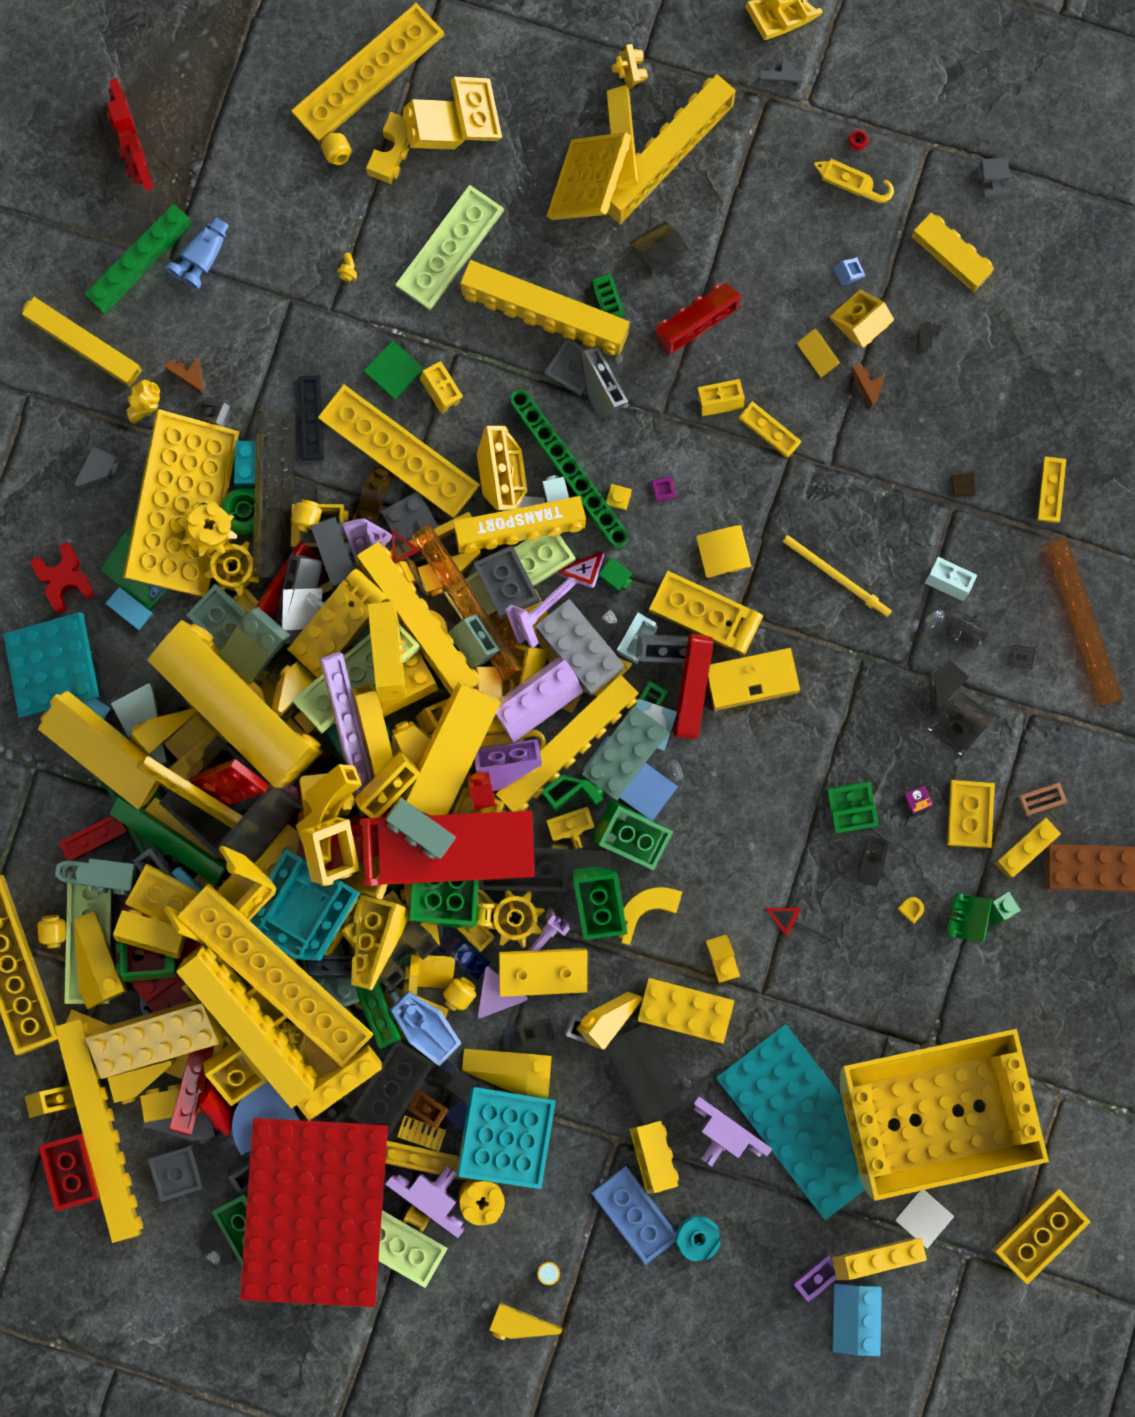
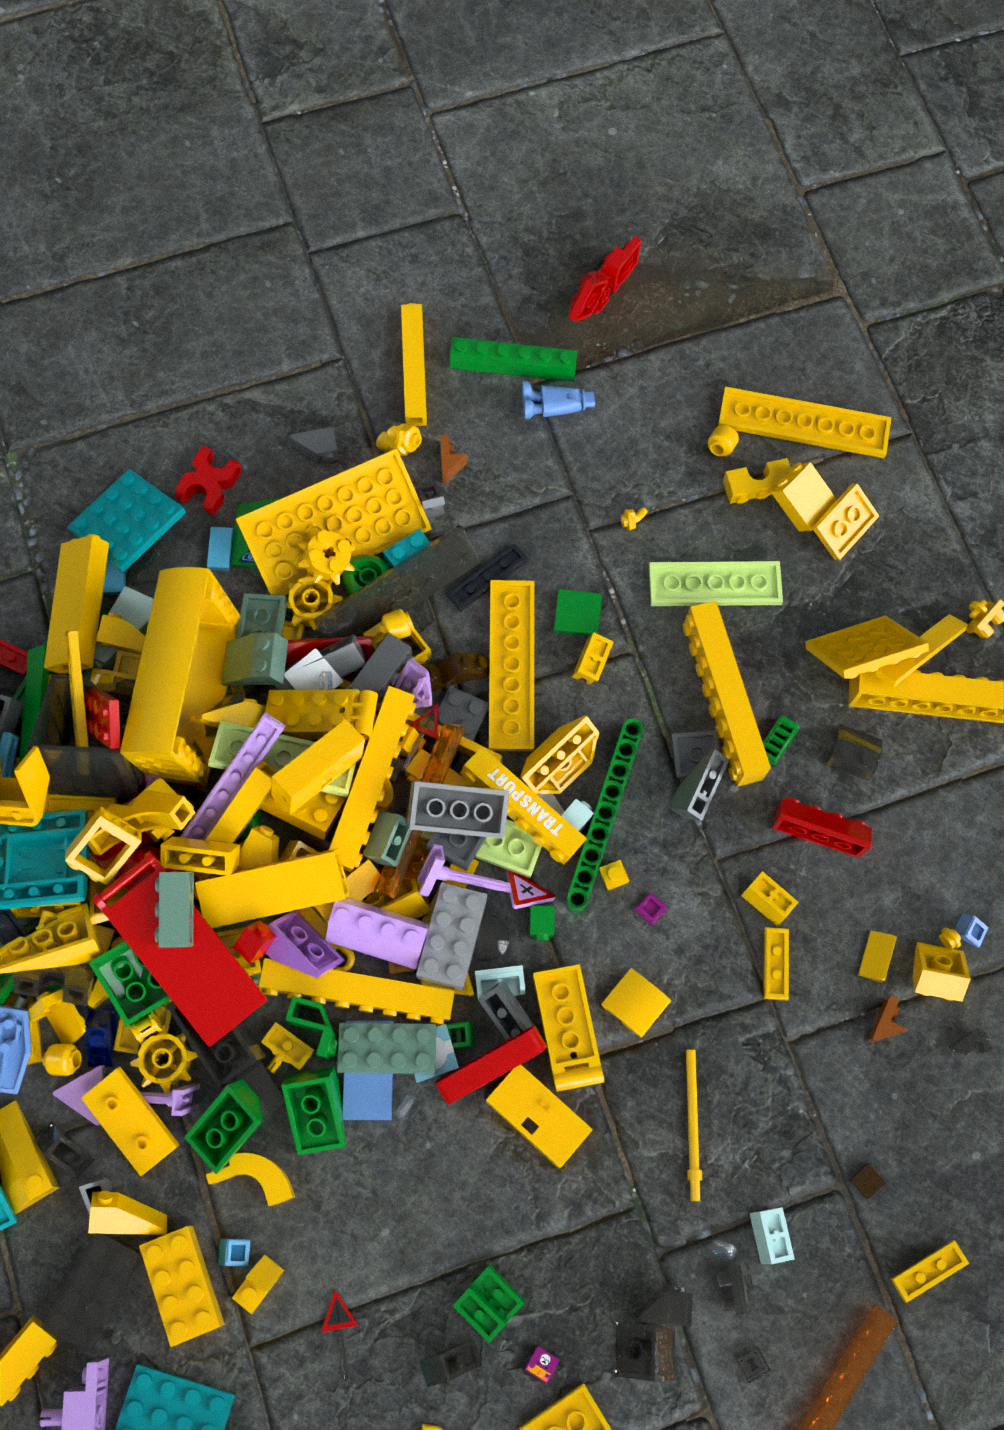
camera: 50 degrees right, 10 degrees down
(492, 573) = (457, 809): none -> light grey brick
(688, 961) = (234, 1252): none -> dark azure slope
(844, 291) = (950, 938): none -> yellow plate

